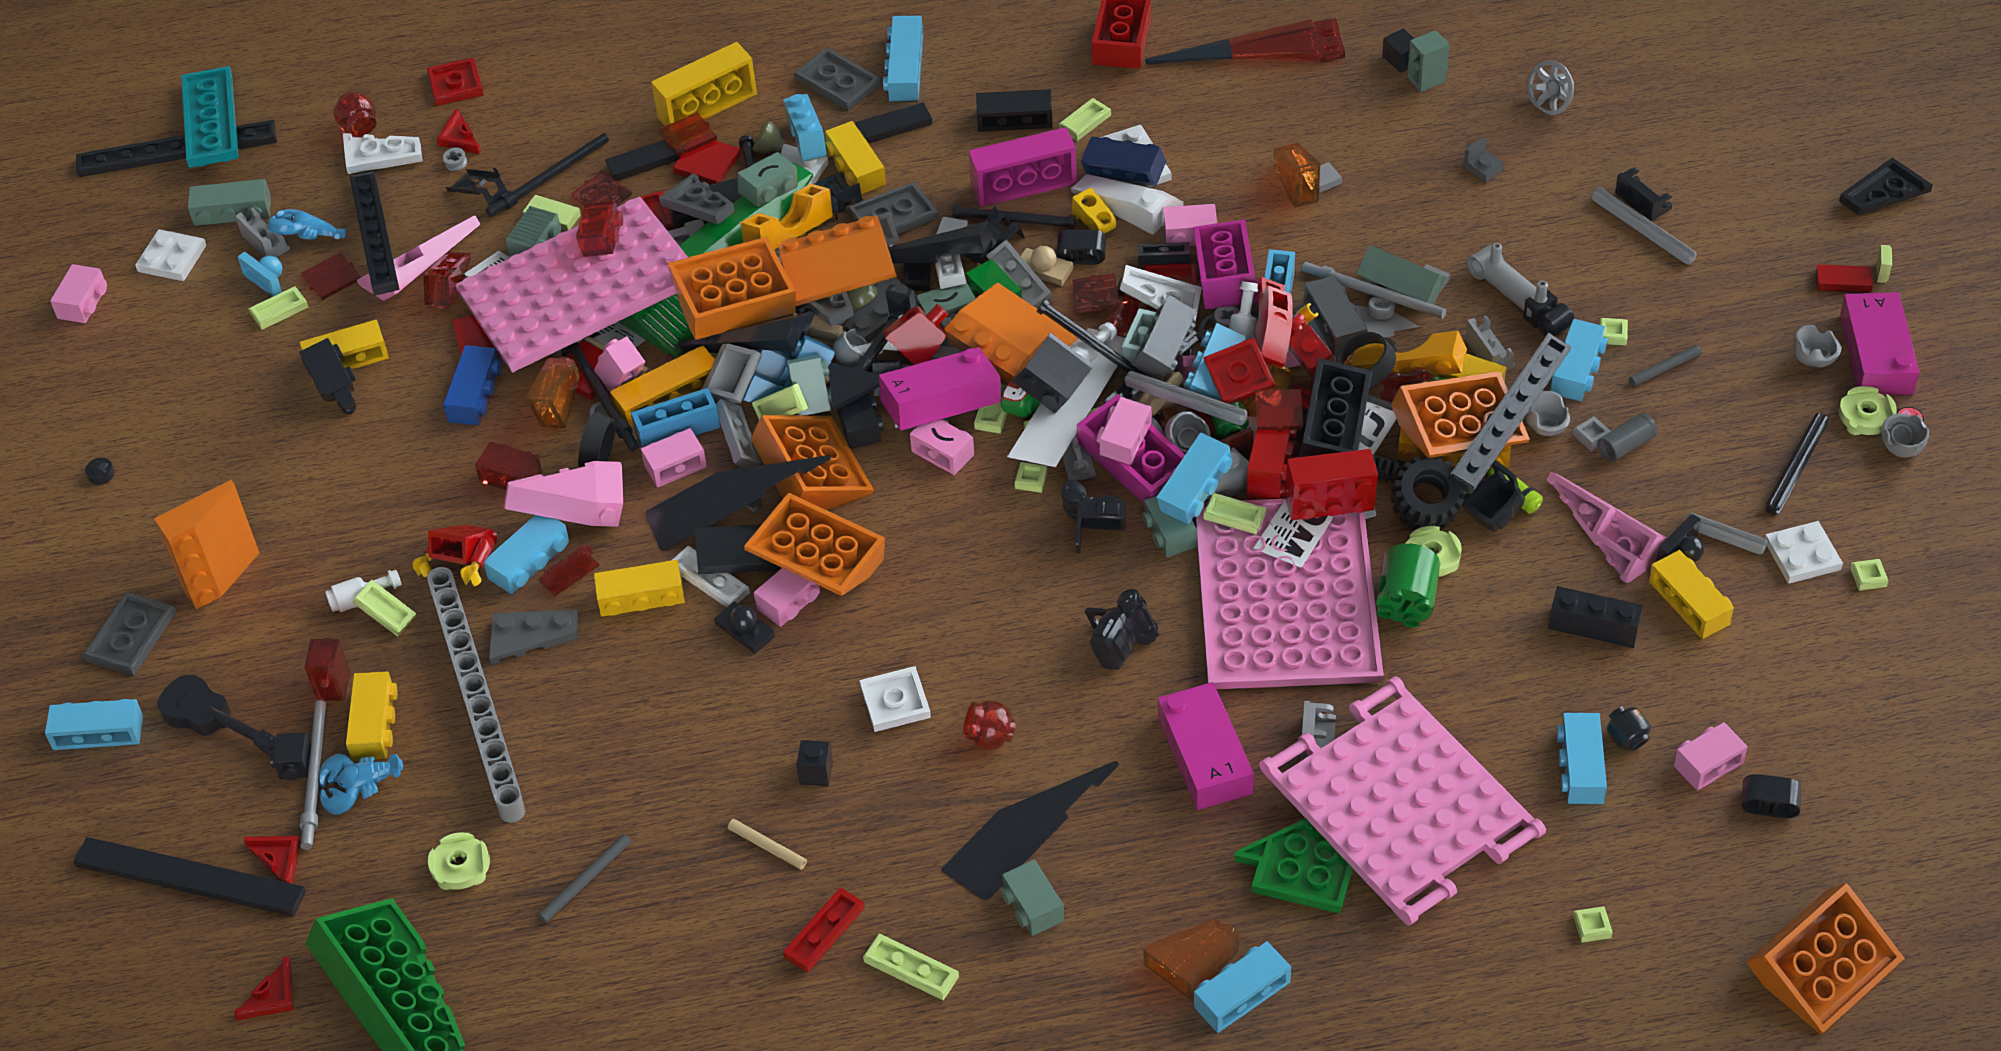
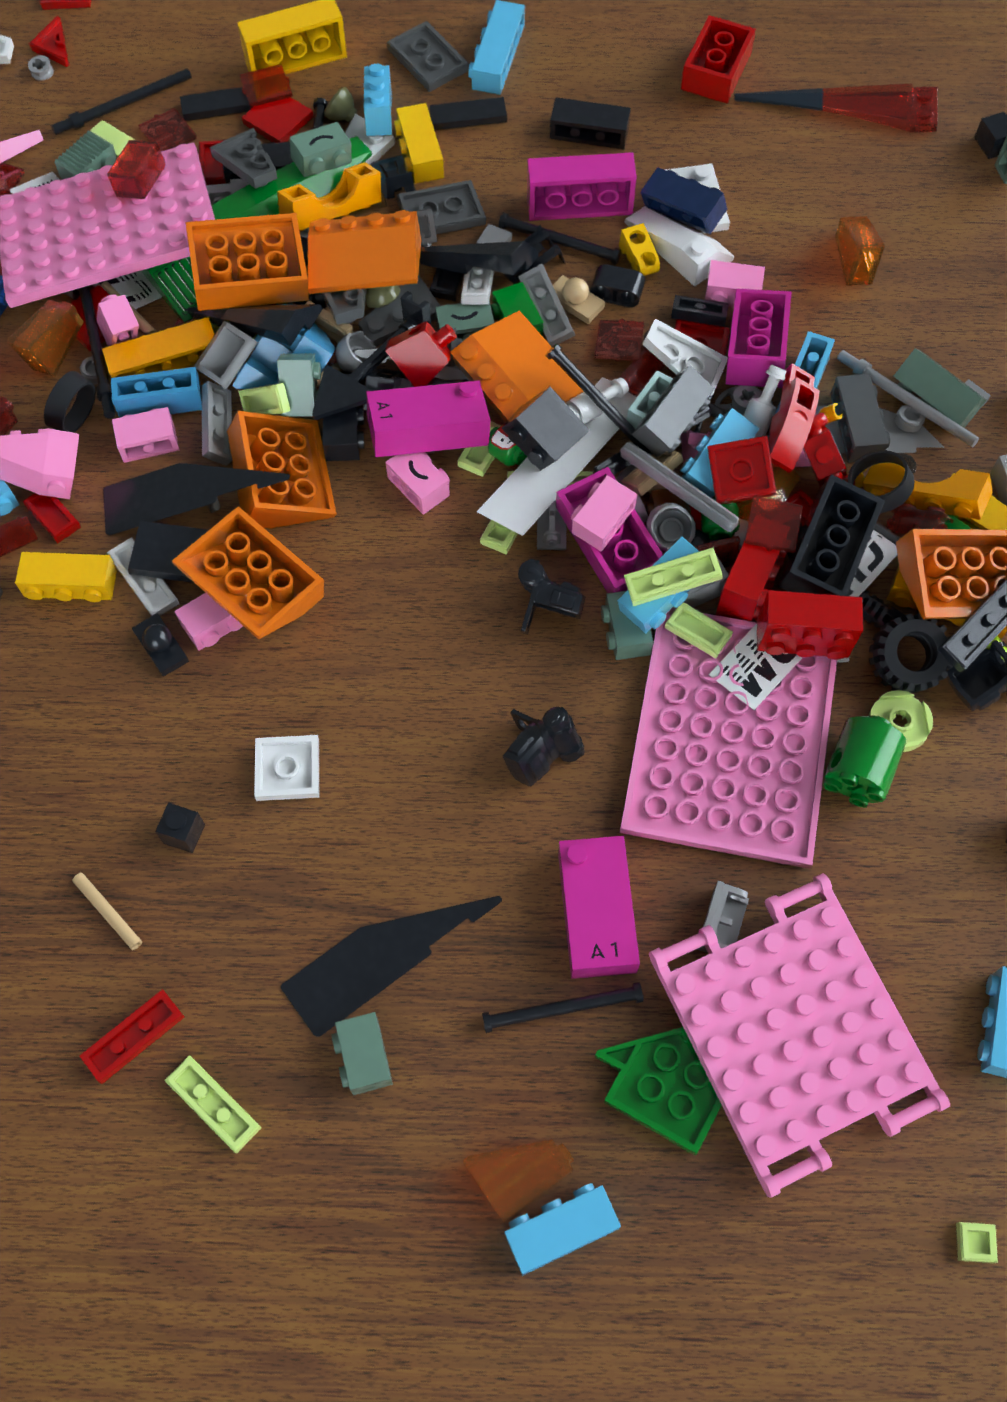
camera: 10 degrees right, 15 degrees up
(468, 186) = (59, 91): black piece -> none
(605, 543) = (52, 516): none -> red tile
(988, 724) = (373, 827): clear red piece -> none
(1085, 119) = (658, 146): yellowish green tile -> none
(1194, 830) = (563, 1007): none -> black bar
(1201, 466) = (673, 576): none -> yellowish green tile
(1328, 177) = (890, 260): light grey tile -> none

